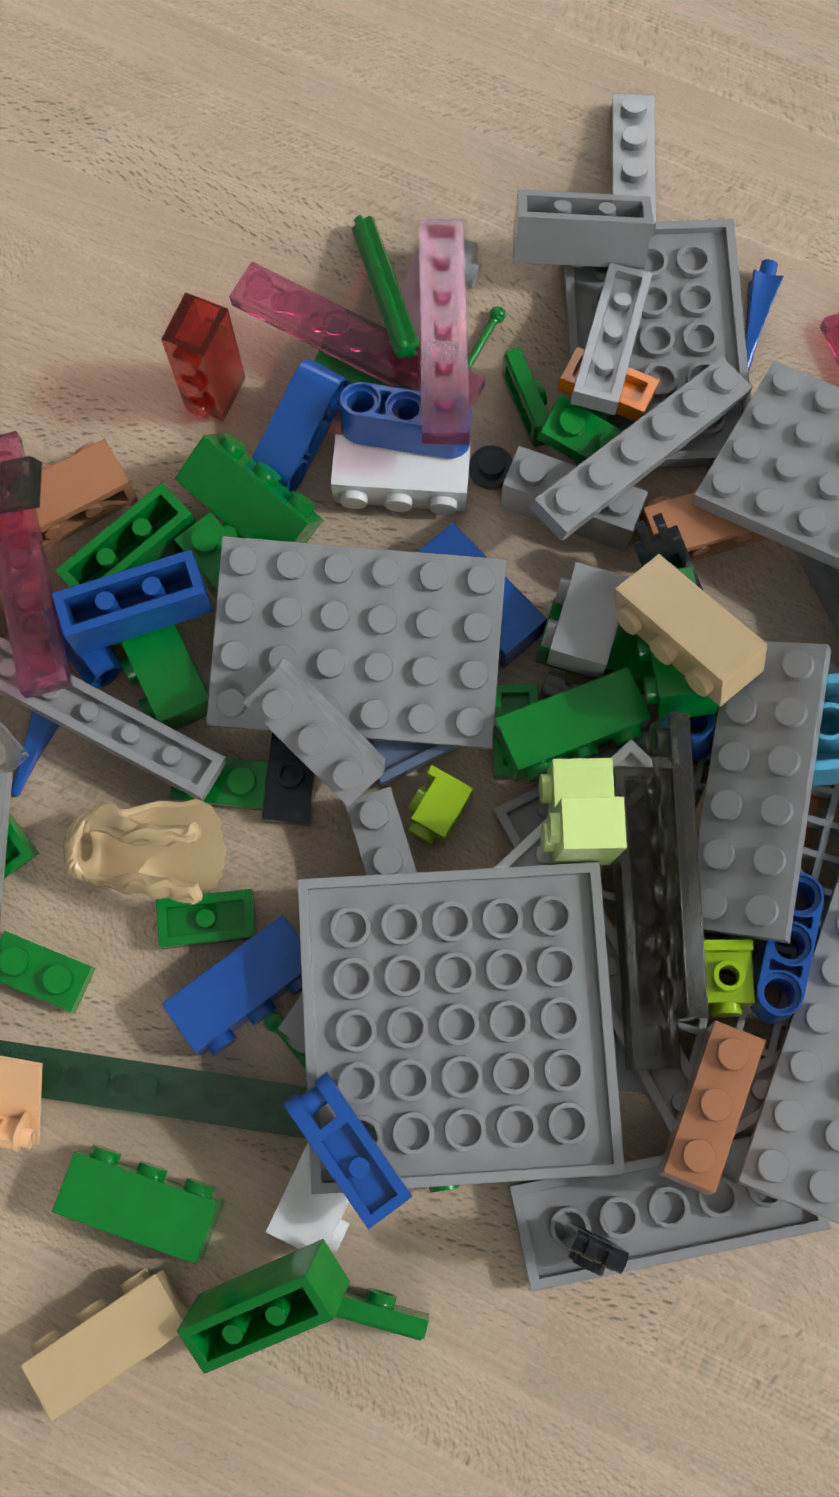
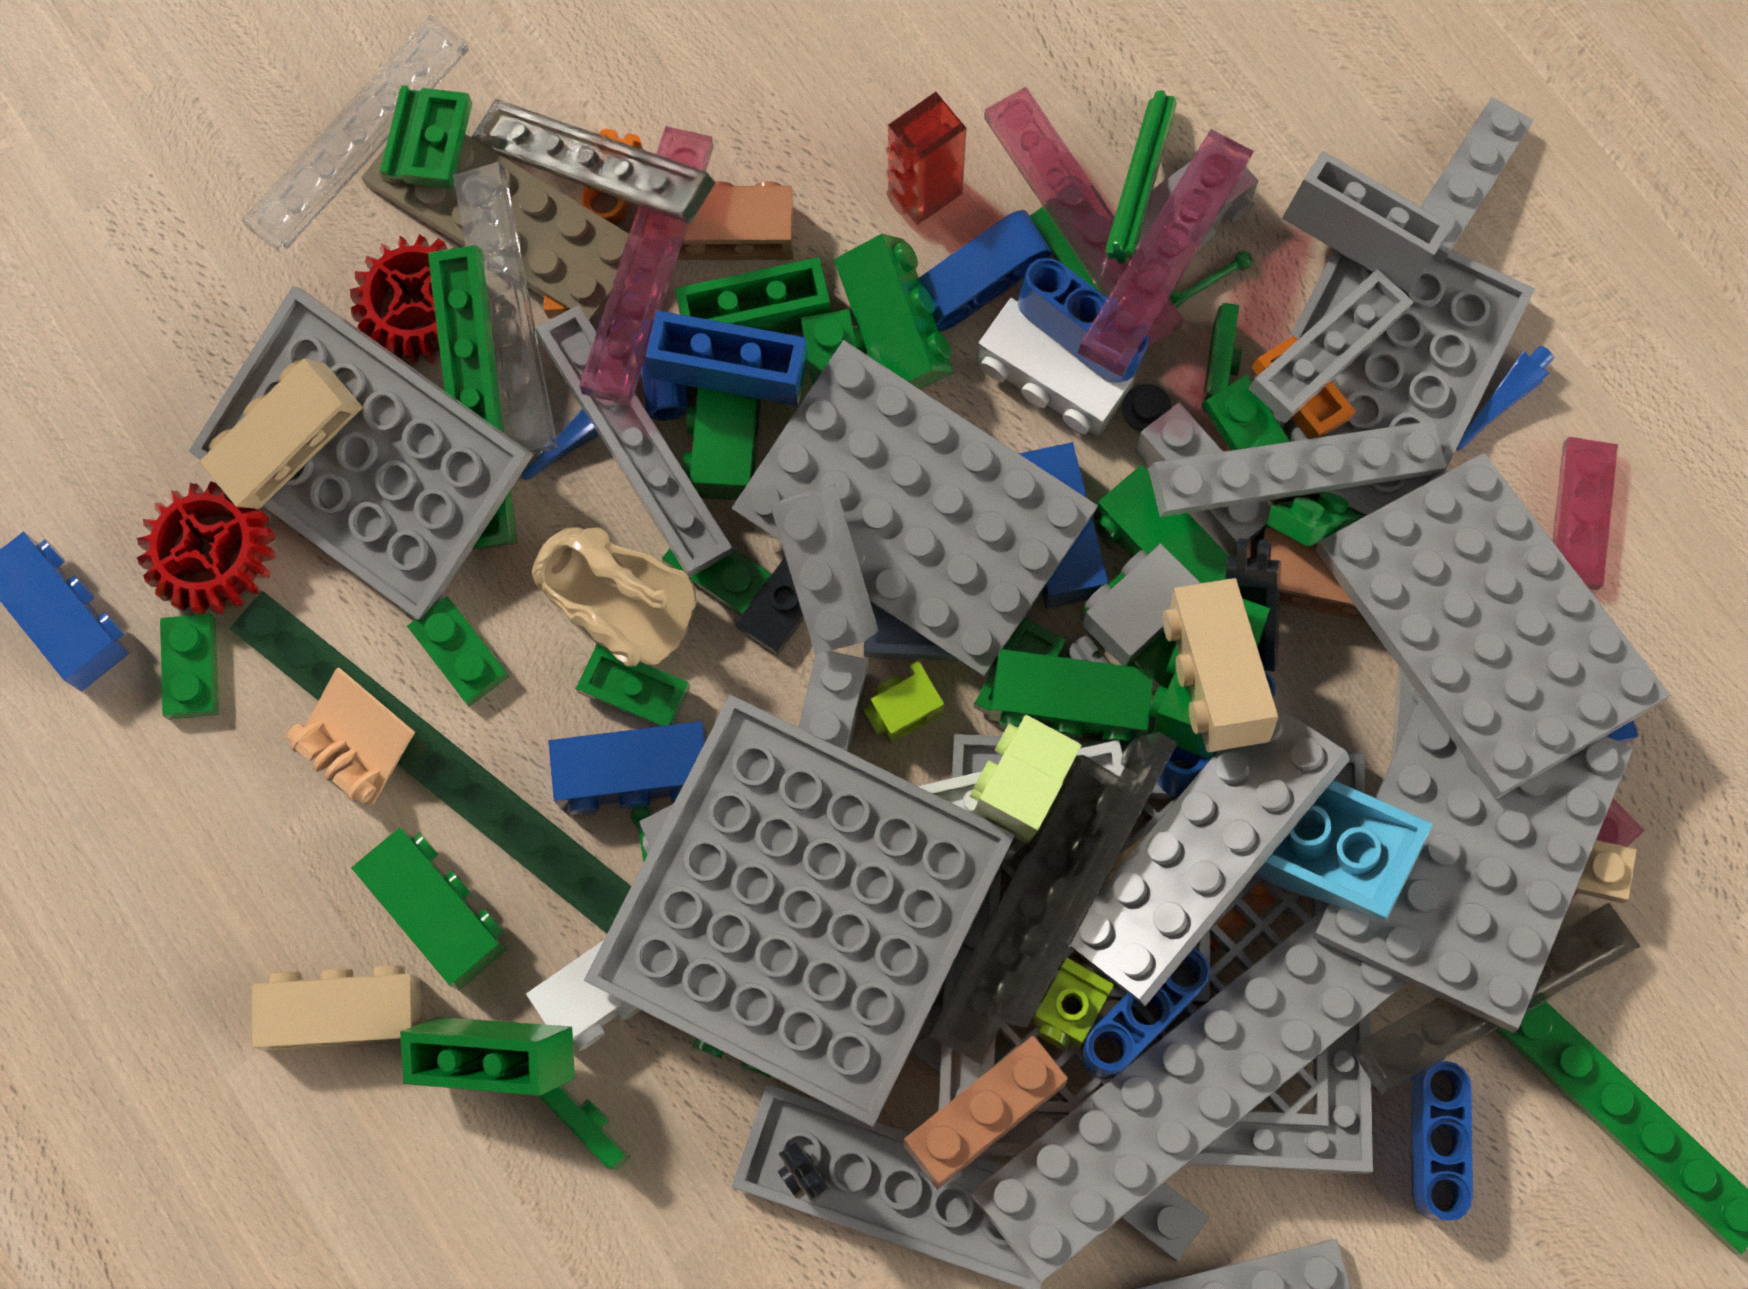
camera: 30 degrees right, 0 degrees up
(349, 1152) = (636, 960): blue plate -> none
(541, 559) = (1133, 521): none -> green brick
(676, 480) = (1312, 517): none -> green plate

